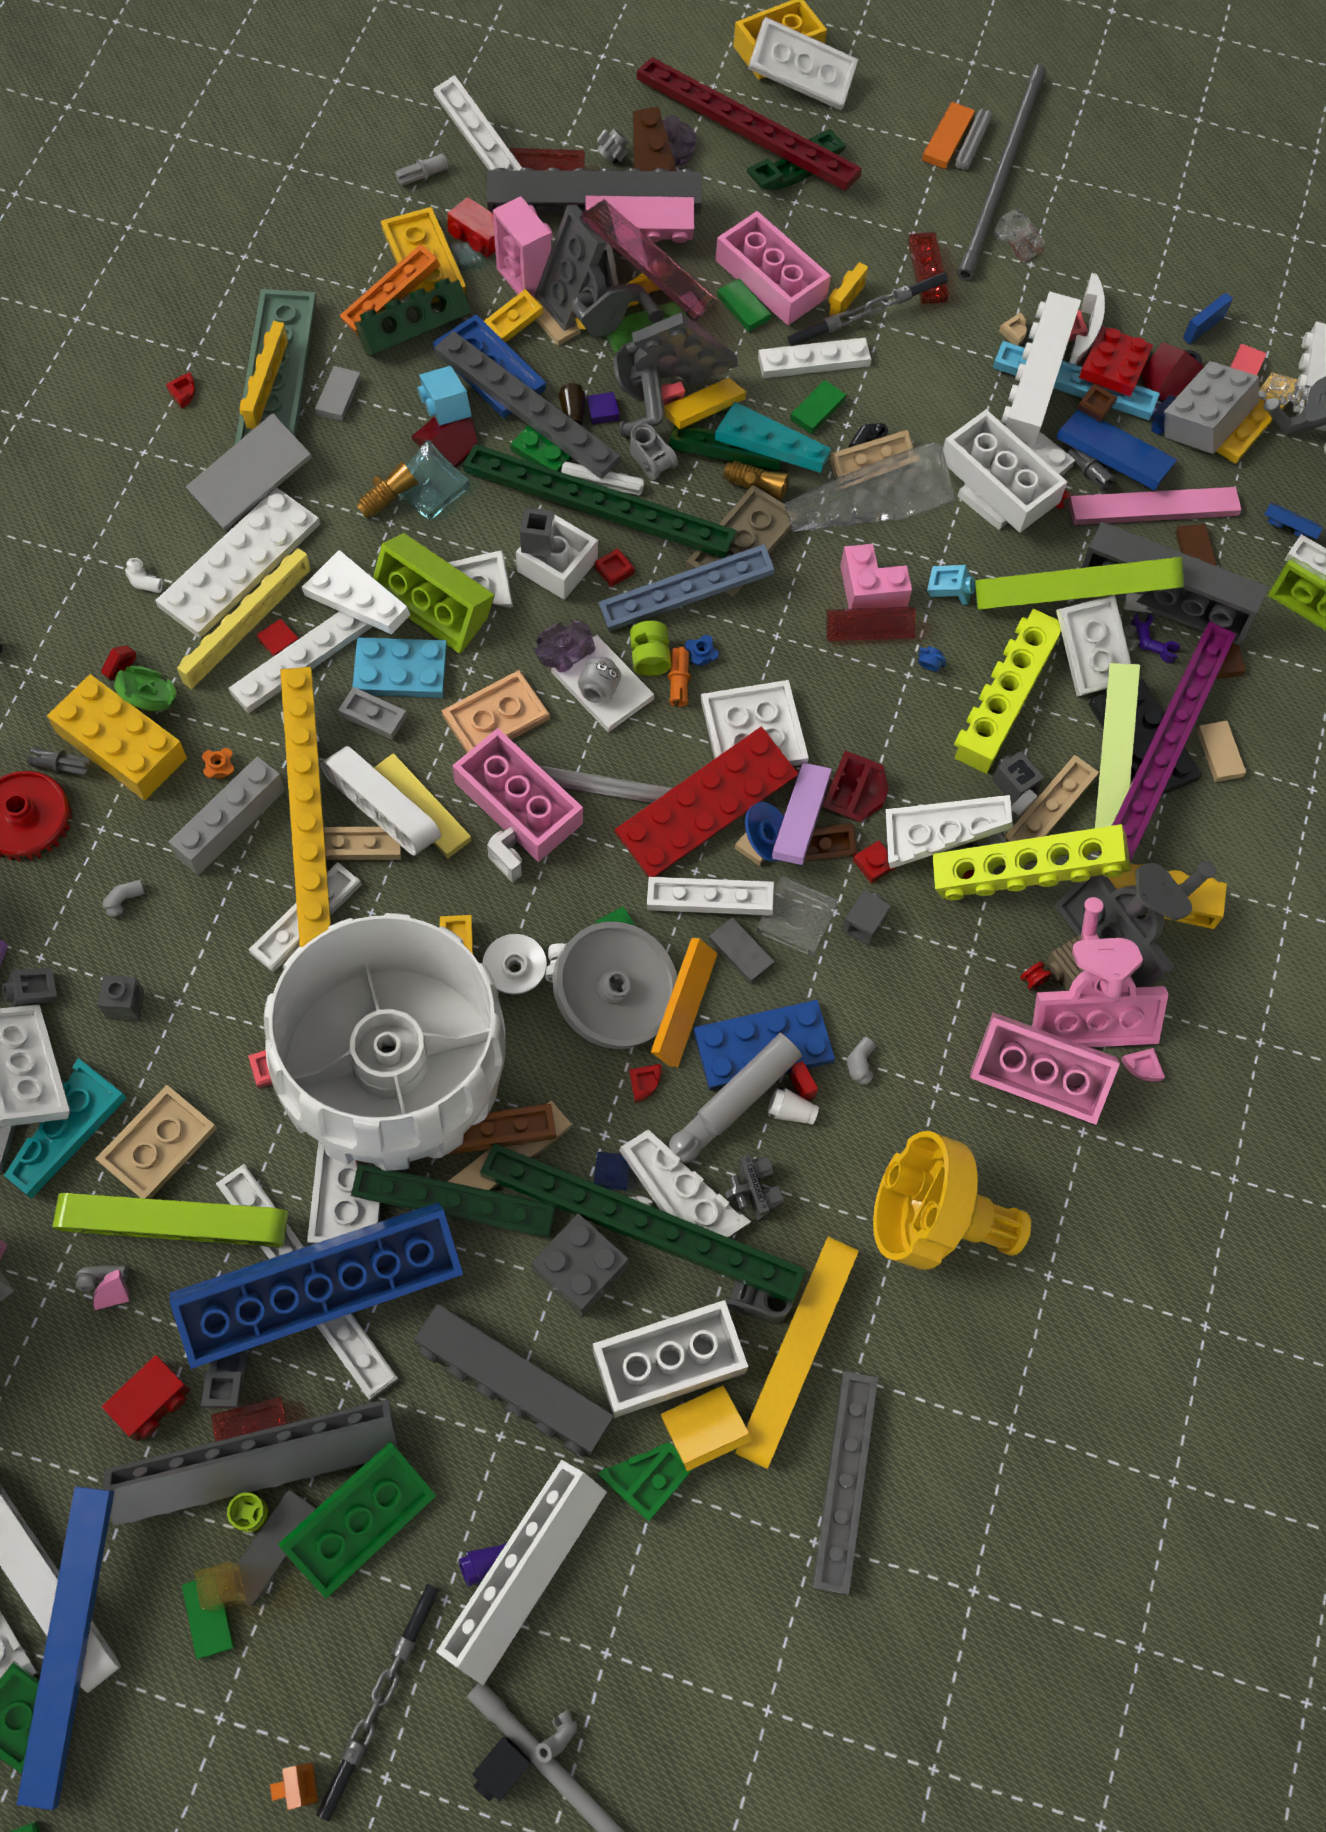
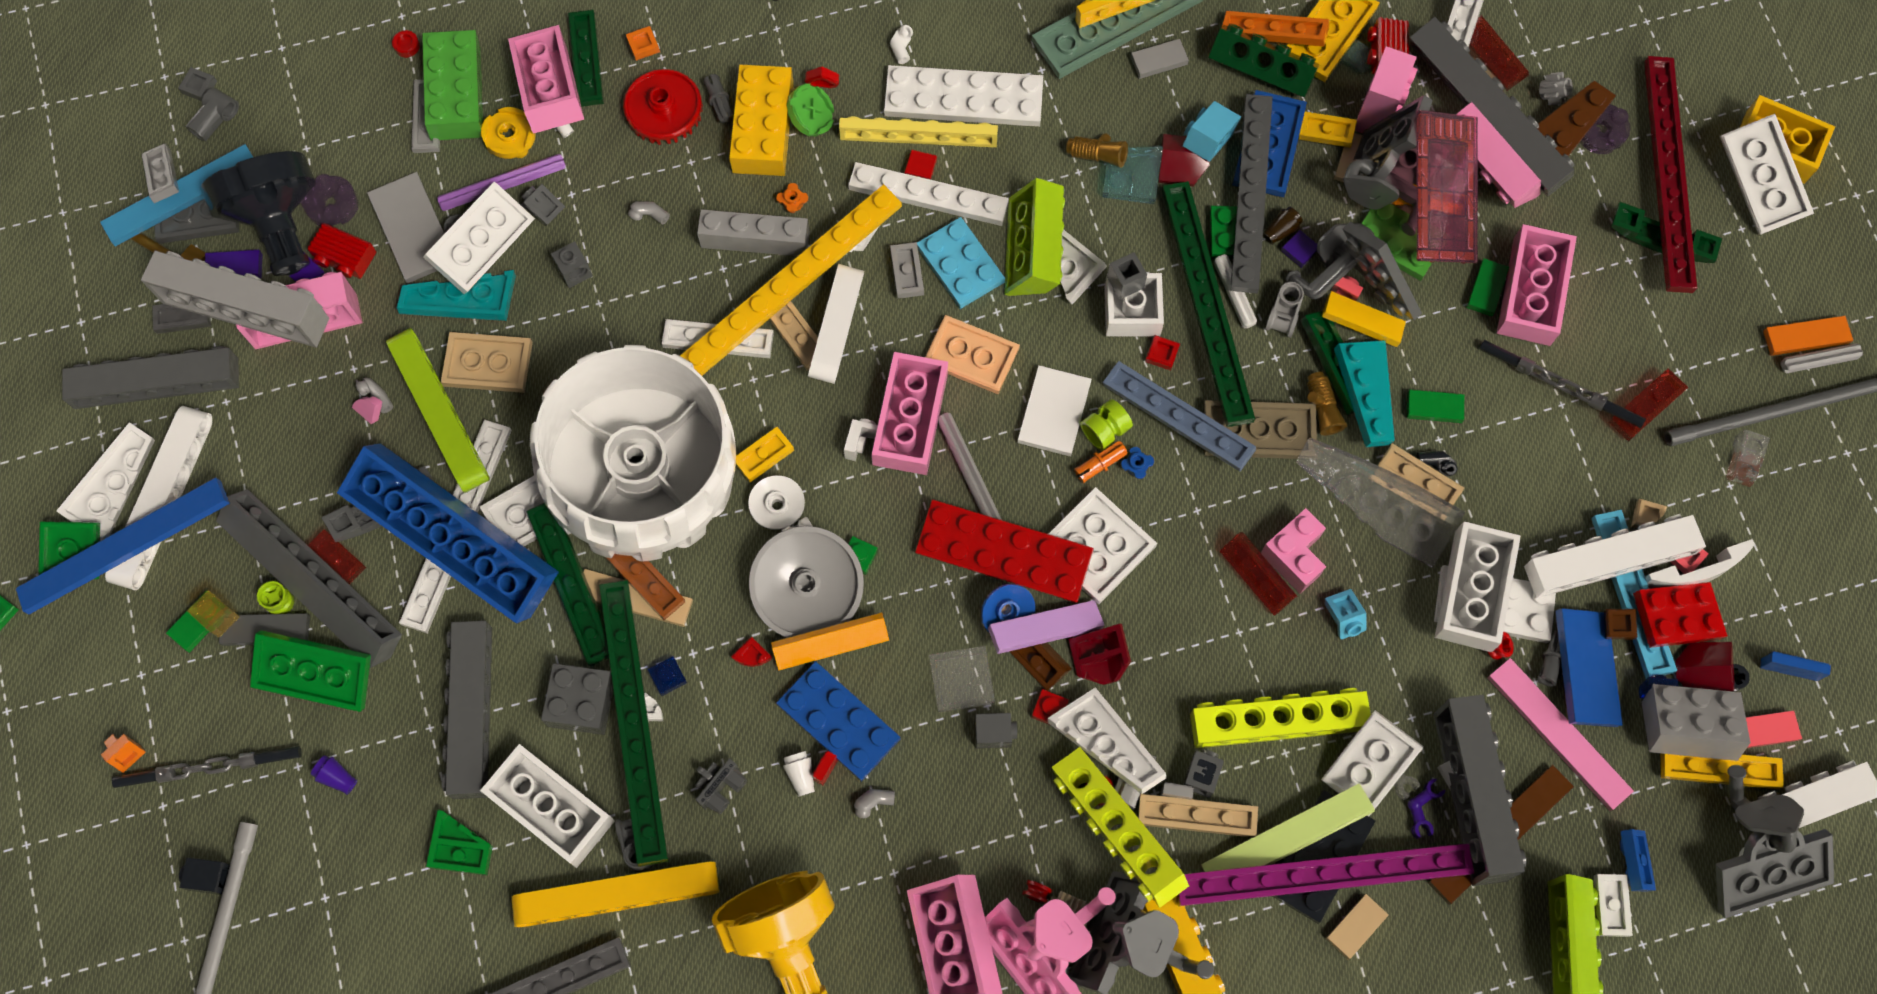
camera: 60 degrees right, 5 degrees up
(146, 1399) = (310, 482): red brick -> none
(248, 472) = (1037, 48): light grey tile -> none
(354, 592) = (992, 190): white wing -> none
(452, 833) = (858, 354): light yellow tile -> none
(521, 1572) = (339, 802): white brick -> none
(557, 1742) = (245, 902): light grey arm -> none
(576, 642) = (1066, 372): clear purple plate -> none
(599, 679) = (1046, 405): light grey head -> none
(678, 1188) = (679, 735): white wing -> none
(705, 1428) = (514, 863): yellow tile -> none
(710, 896) = (929, 604): white plate -> none
(735, 1097) = (775, 726): light grey piece -> none
(741, 950) = (903, 656): flat silver tile -> none
(814, 358) = (1482, 373): white plate -> none
(851, 286) = (1573, 357): yellow plate -> none
(931, 659) = (1262, 640): blue plate -> none
(1080, 583) = (1413, 714): lime beam -> none
(1285, 390) = (1765, 771): clear plate -> none

